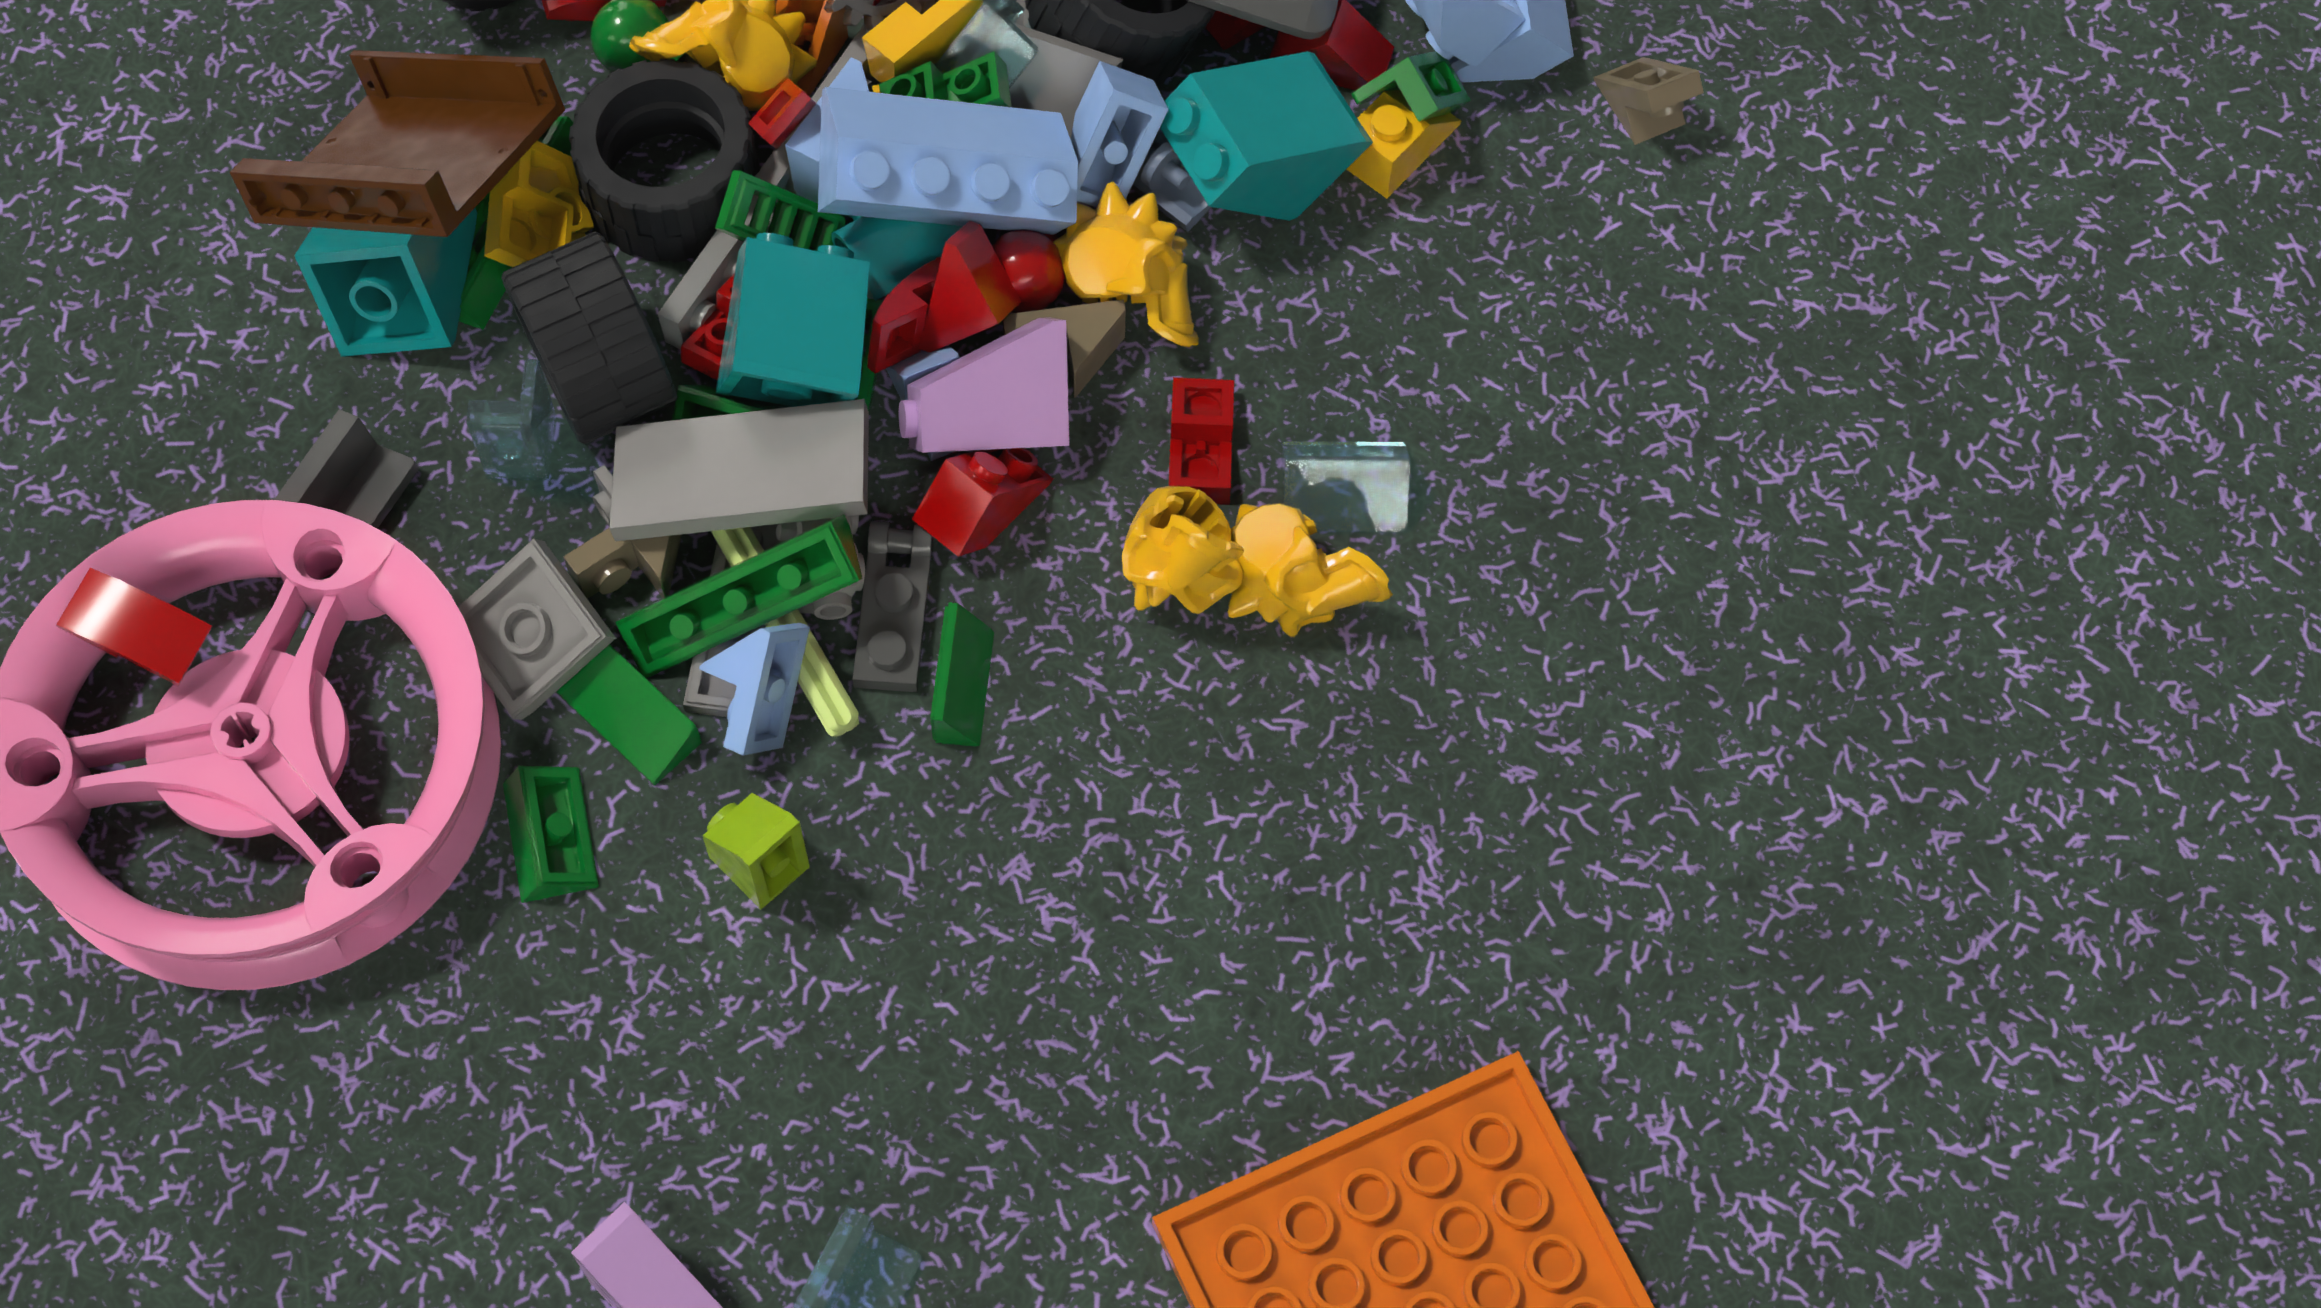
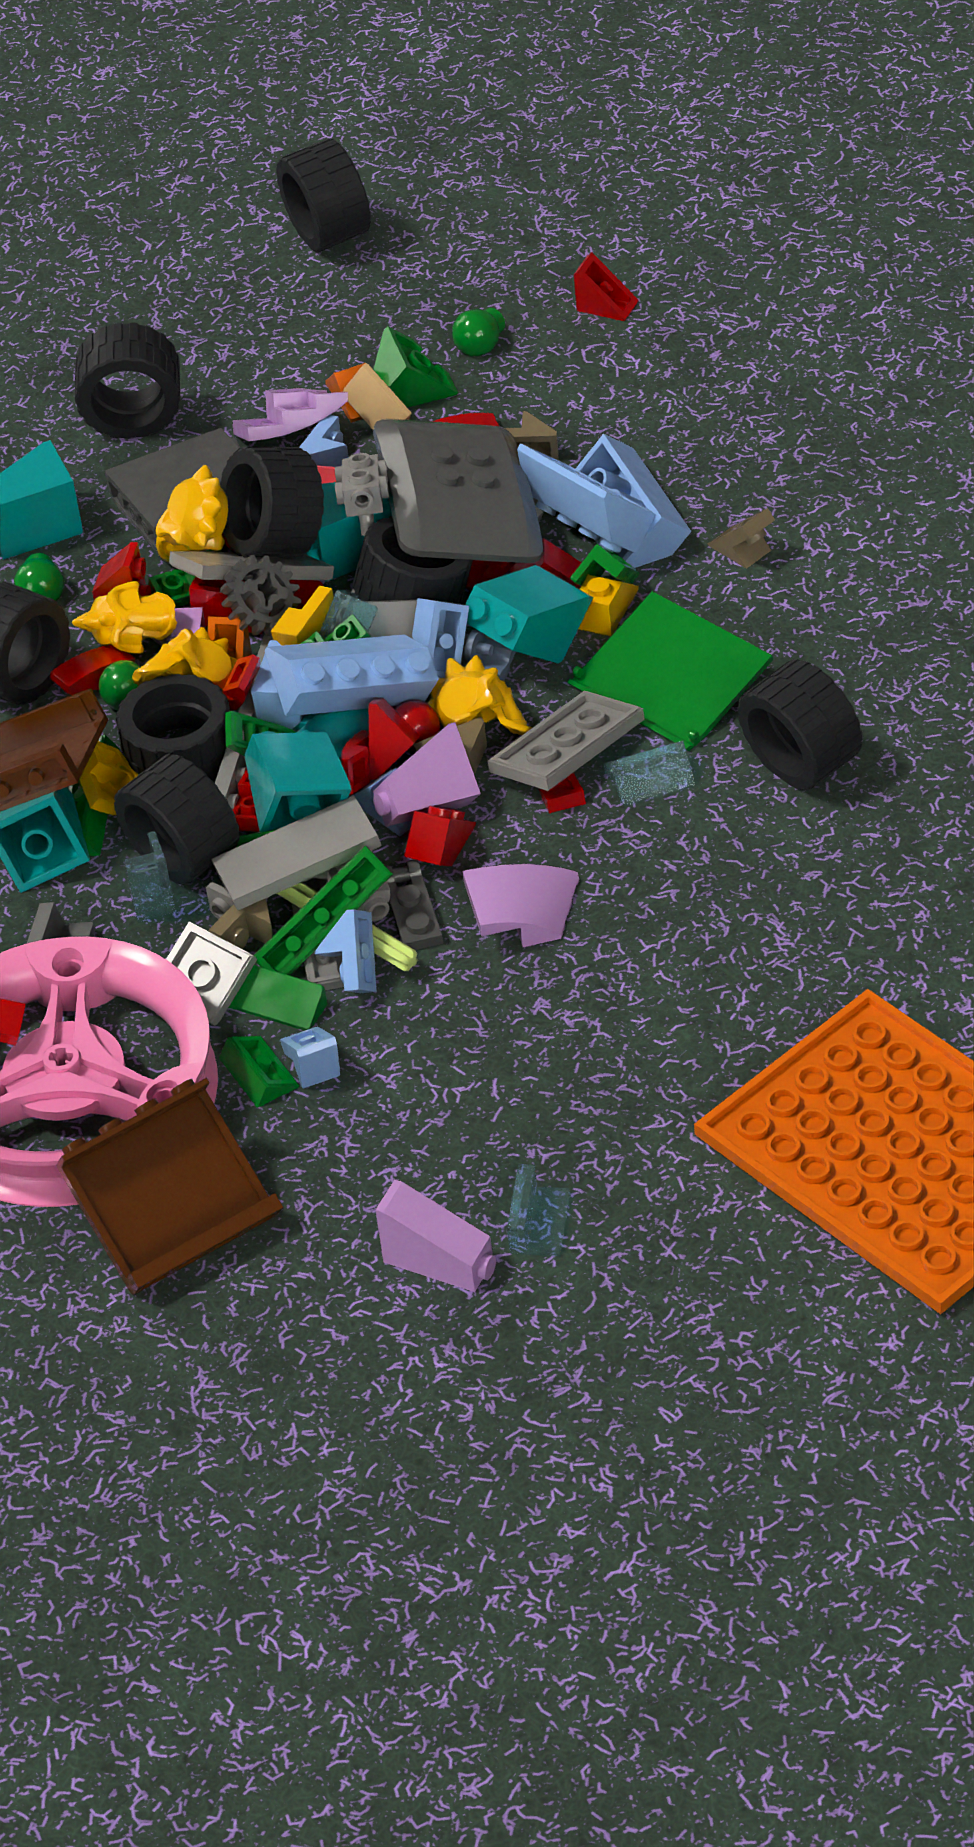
camera: 10 degrees left, 20 degrees down
(298, 1049) = (165, 1186): none -> reddish brown panel
(629, 840) = (313, 1055): none -> light blue slope
(757, 847) = (388, 1028): lime slope -> none
(961, 678) = (464, 924): green slope -> none
(1055, 670) = (521, 898): none -> lavender slope
(1182, 550) = (571, 816): yellow head -> none
(1238, 385) = (566, 740): none -> light grey tile
(1291, 577) = (636, 814): yellow head -> none
(1447, 308) = (674, 669): none -> green container
(1596, 510) = (800, 724): none -> black tyre

